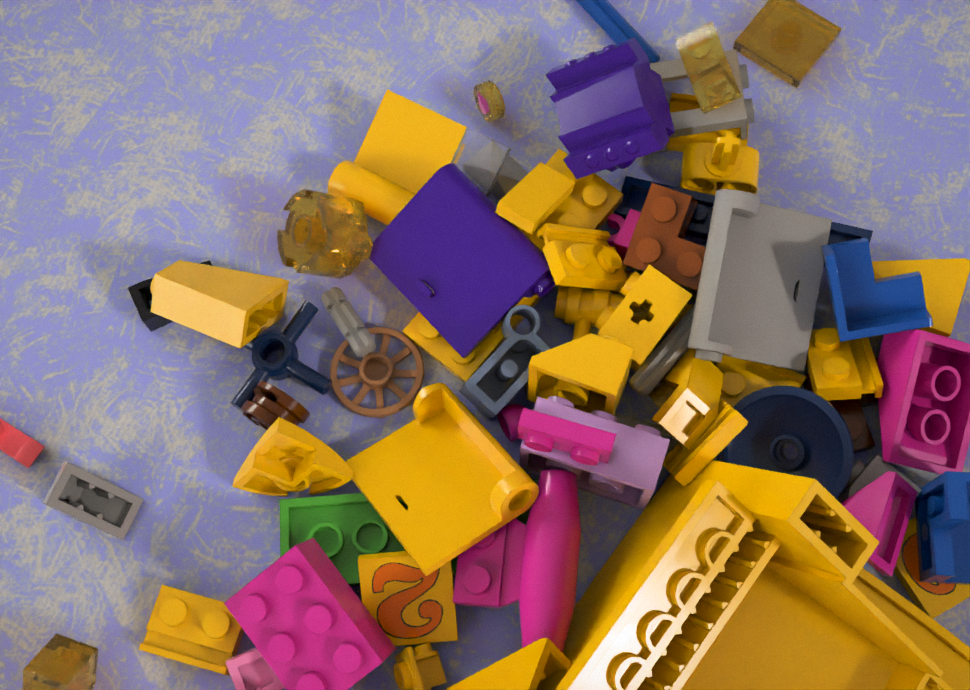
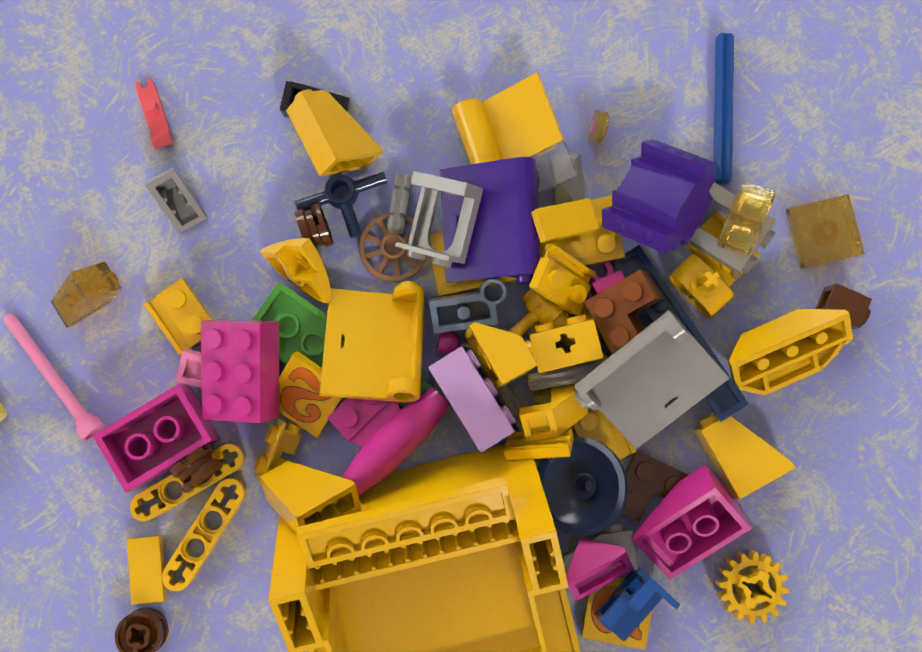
camera: 30 degrees right, 15 degrees up
(324, 234) = (424, 139): clear yellow brick -> none
(368, 271) = (419, 241): none -> light grey panel
(584, 442) = (460, 397): dark pink plate -> none
(842, 368) = (661, 463): yellow plate -> none
(858, 157) = (788, 349): none -> yellow wedge
(867, 304) = (704, 445): blue panel -> none
(868, 87) = (842, 298): none -> reddish brown brick

